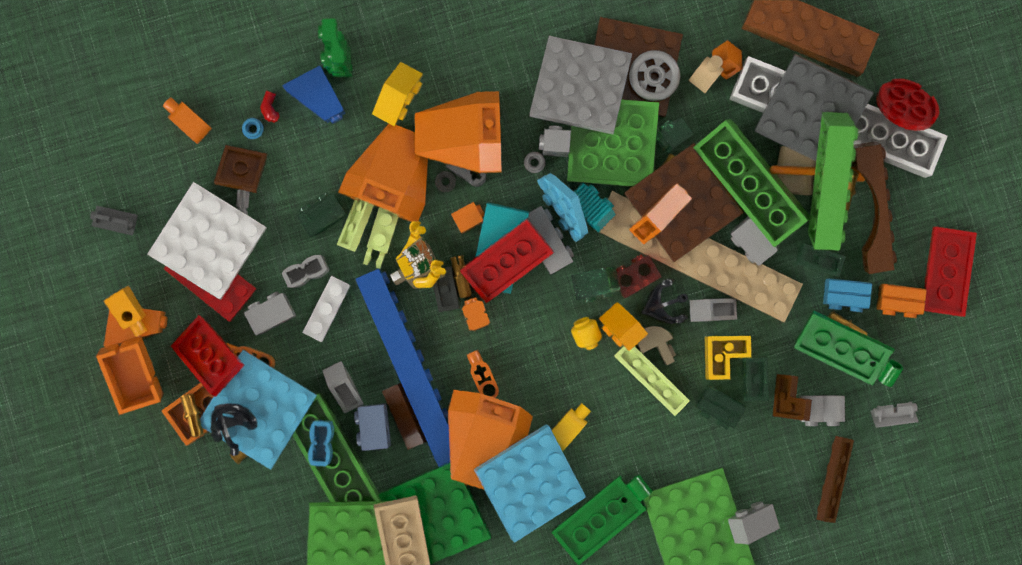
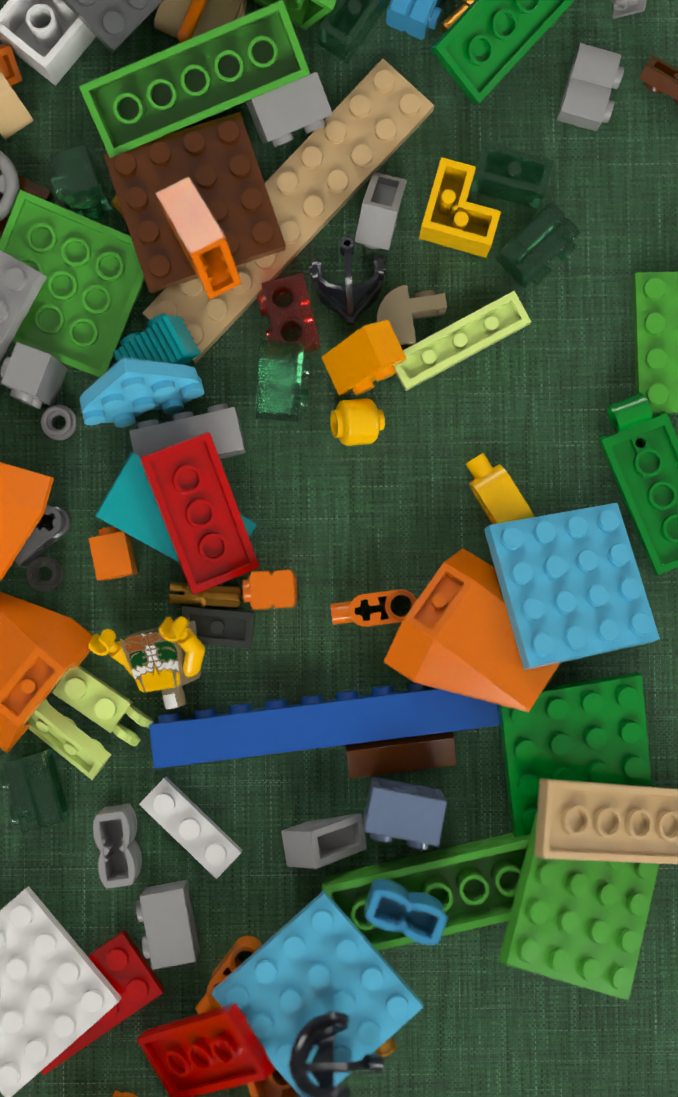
camera: 65 degrees left, 0 degrees up
(785, 400) = (561, 139): reddish brown plate -> none

